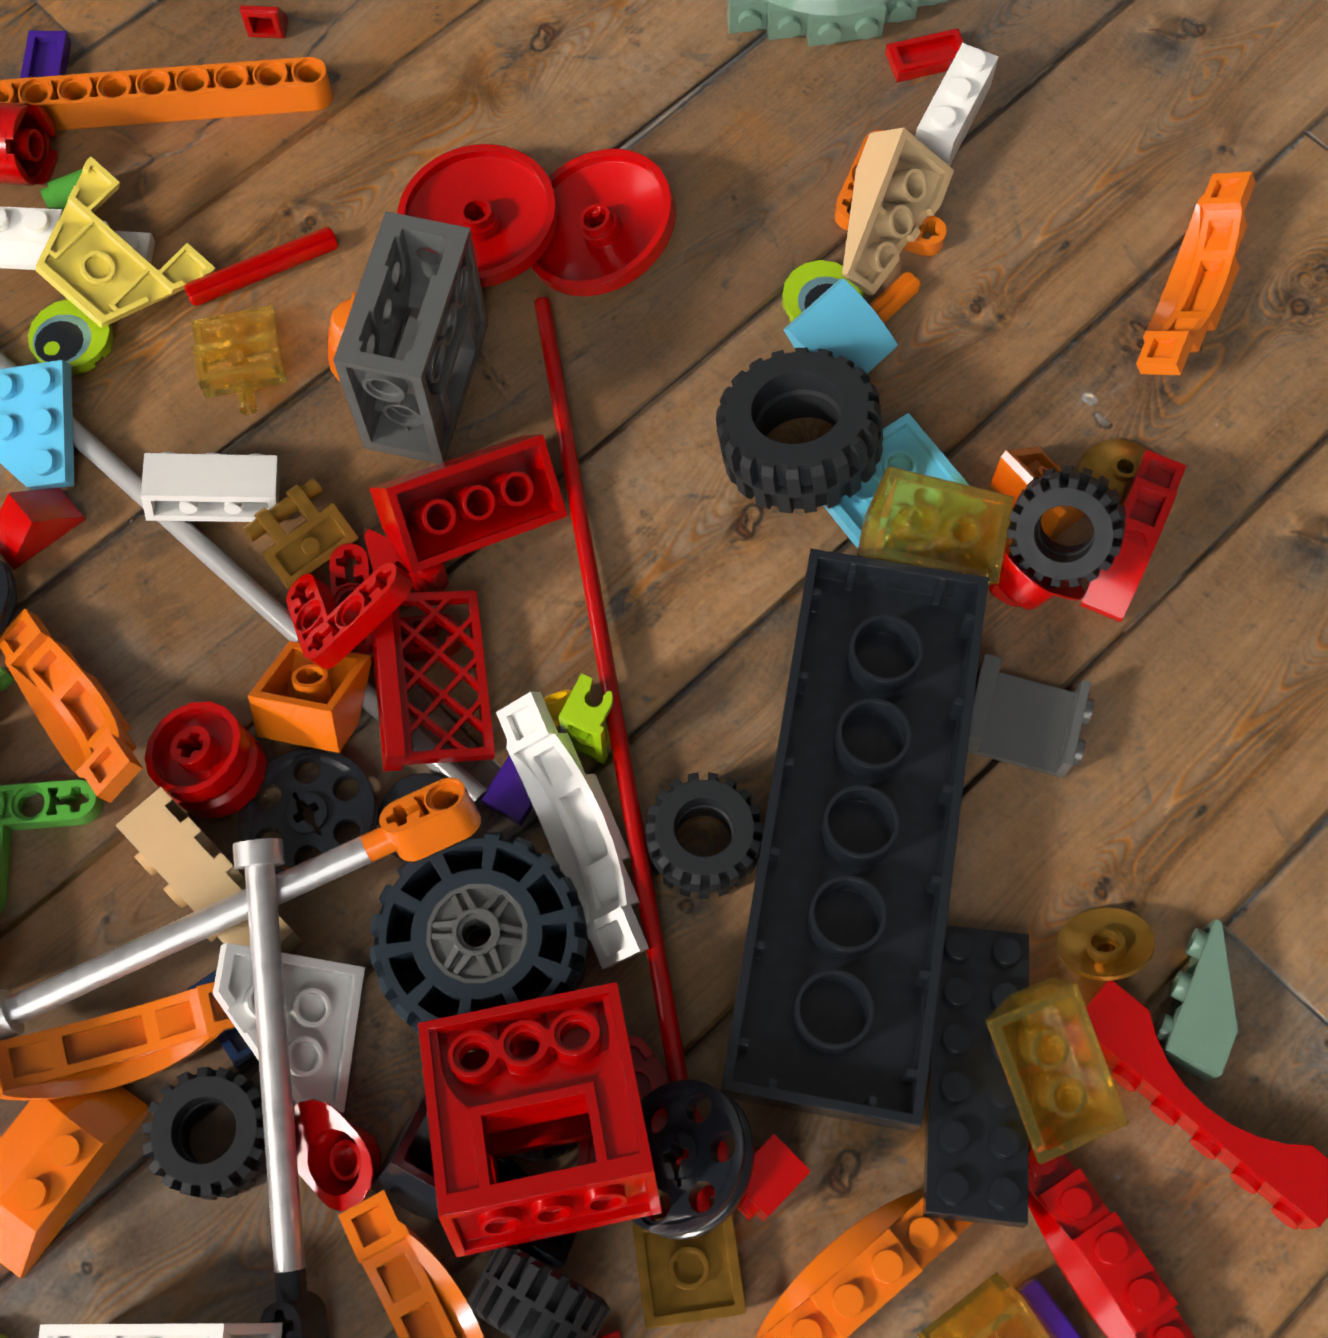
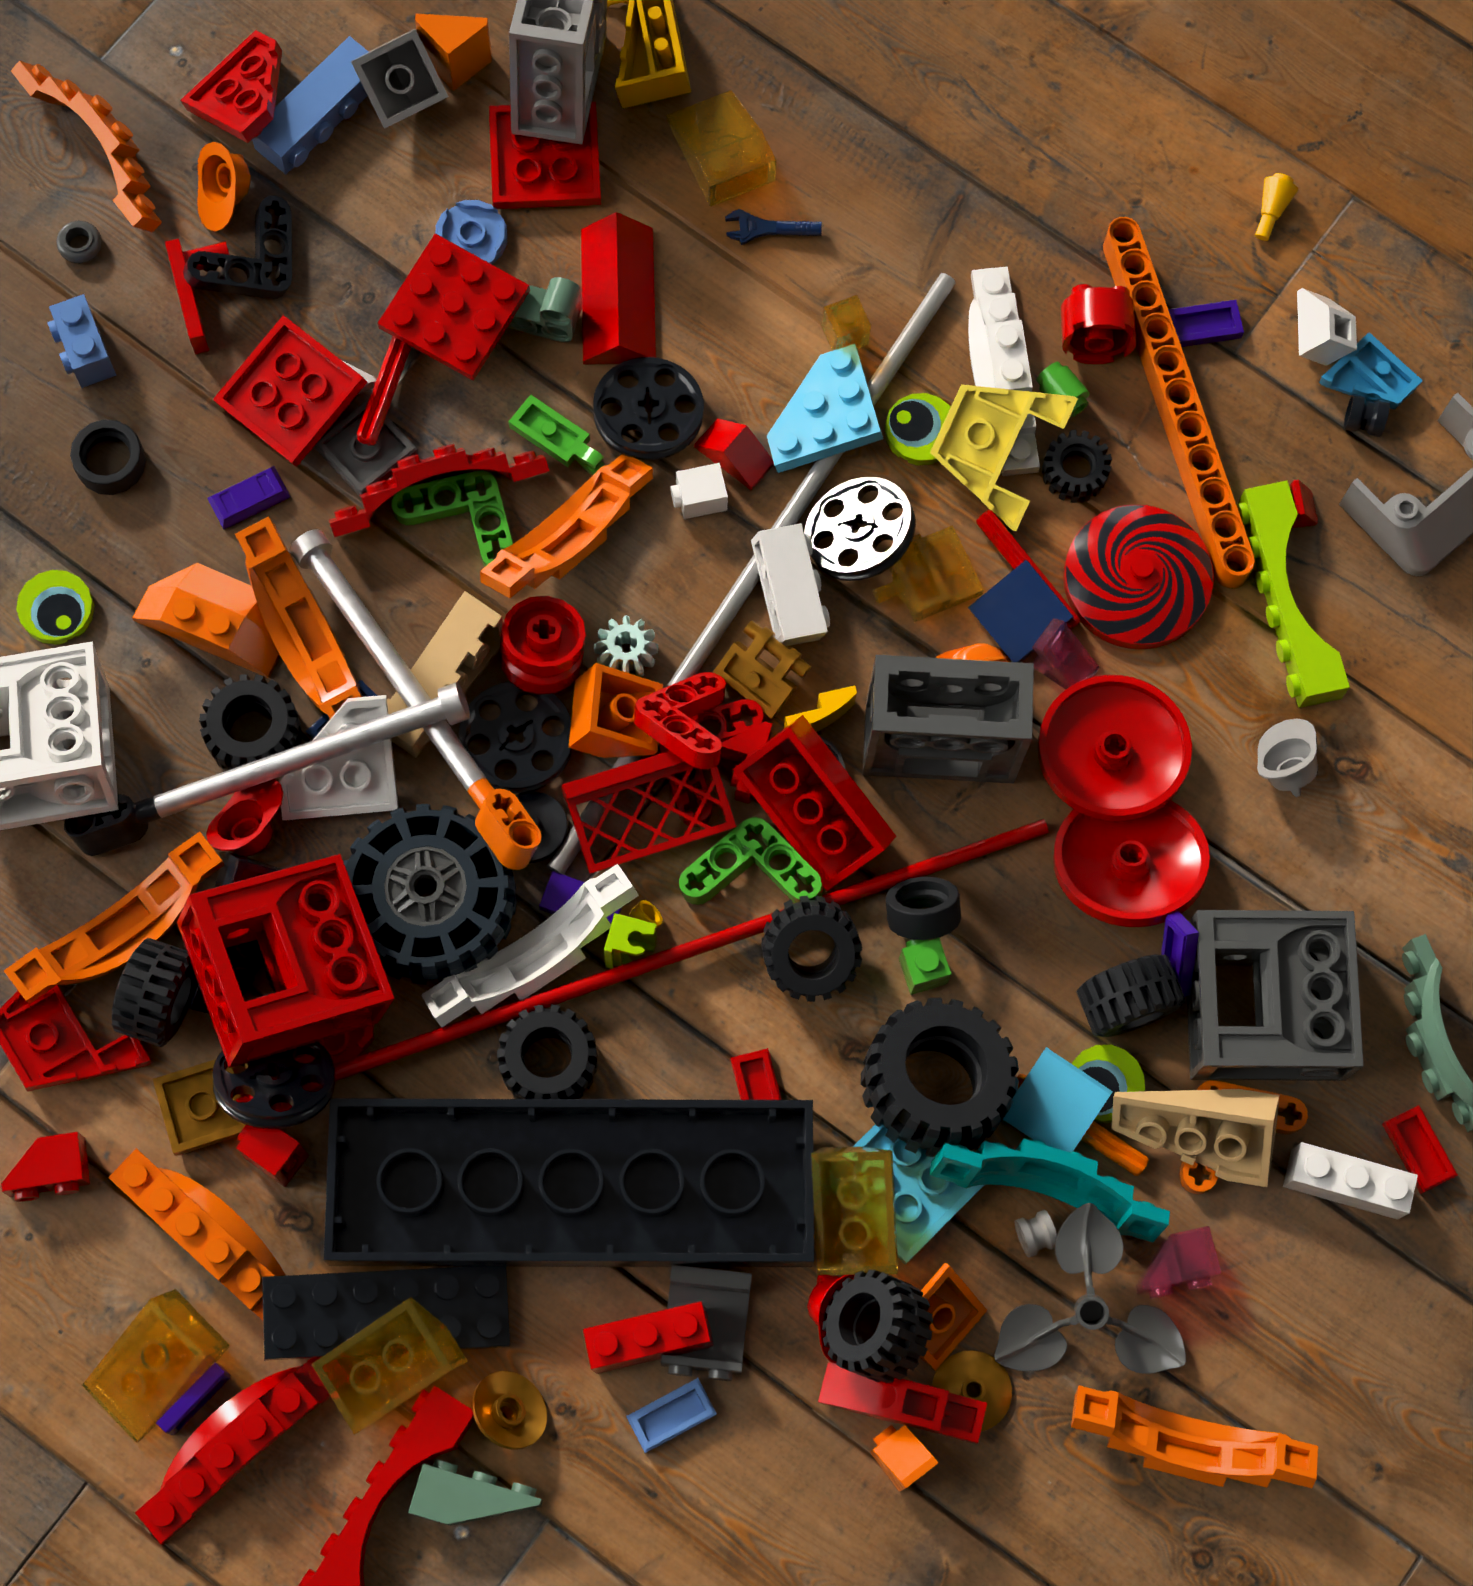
camera: 75 degrees right, 5 degrees up
(70, 563) = (700, 491): none -> white brick
(154, 183) = (1083, 447): none -> black tyre
(175, 389) = (868, 538): none -> wedge
(226, 663) = (640, 646): none -> light aqua gear
(297, 171) = (1138, 576): none -> dish
(305, 276) = (1019, 611): none -> dark blue tile
(353, 244) = (1063, 656): none -> clear pink slope
(361, 478) = (830, 707): none -> yellow slope
(430, 41) = (1312, 664): none -> lime arch
(507, 588) = (748, 853): none -> bright green beam
(521, 73) = (1288, 755): none -> light grey piece
(627, 425) = (928, 923): none -> black tyre
(654, 511) = (817, 979): none -> black tyre
(670, 432) = (924, 965): none -> bright green brick
(708, 195) = (1180, 946): none -> dark purple tile
(745, 241) = (1130, 995): none -> black tyre
(760, 140) = (1284, 984): none -> dark grey piece
(764, 625) = (755, 1076): none -> red tile
(920, 340) = (1053, 1173): none -> teal piece
(969, 382) = (1036, 1233): none -> light grey wheel
(1013, 263) = (1181, 1260): none -> clear pink slope
(1041, 775) = (648, 1337): none -> red brick
(1083, 311) = (1088, 1245): none -> dark grey plant
(1121, 774) = (671, 1415): none -> medium blue tile
(1197, 538) = (902, 1456): none -> orange slope

